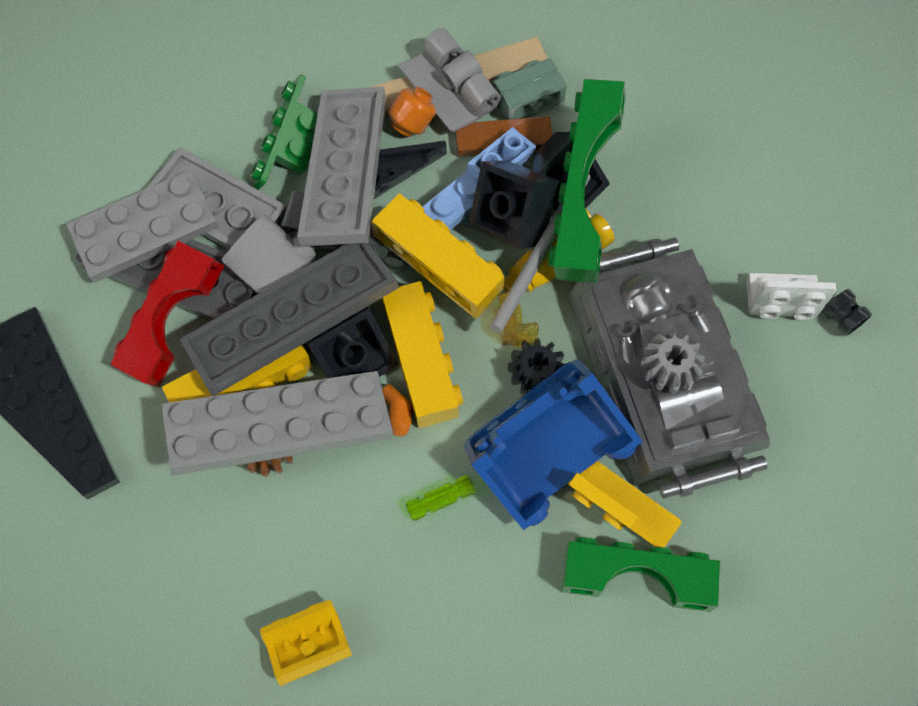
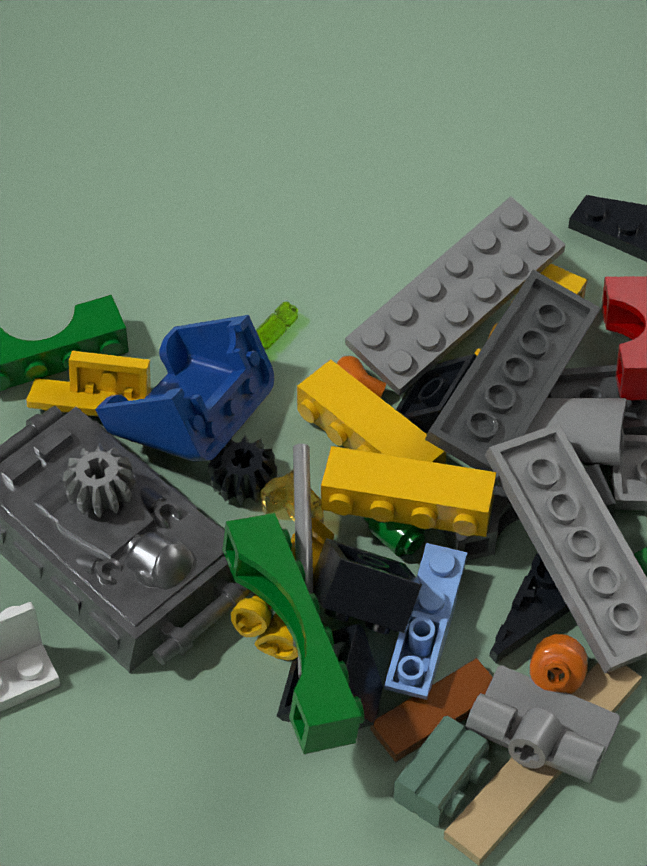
camera: 150 degrees right, 15 degrees down
(305, 642) = (310, 180): yellow bracket -> none

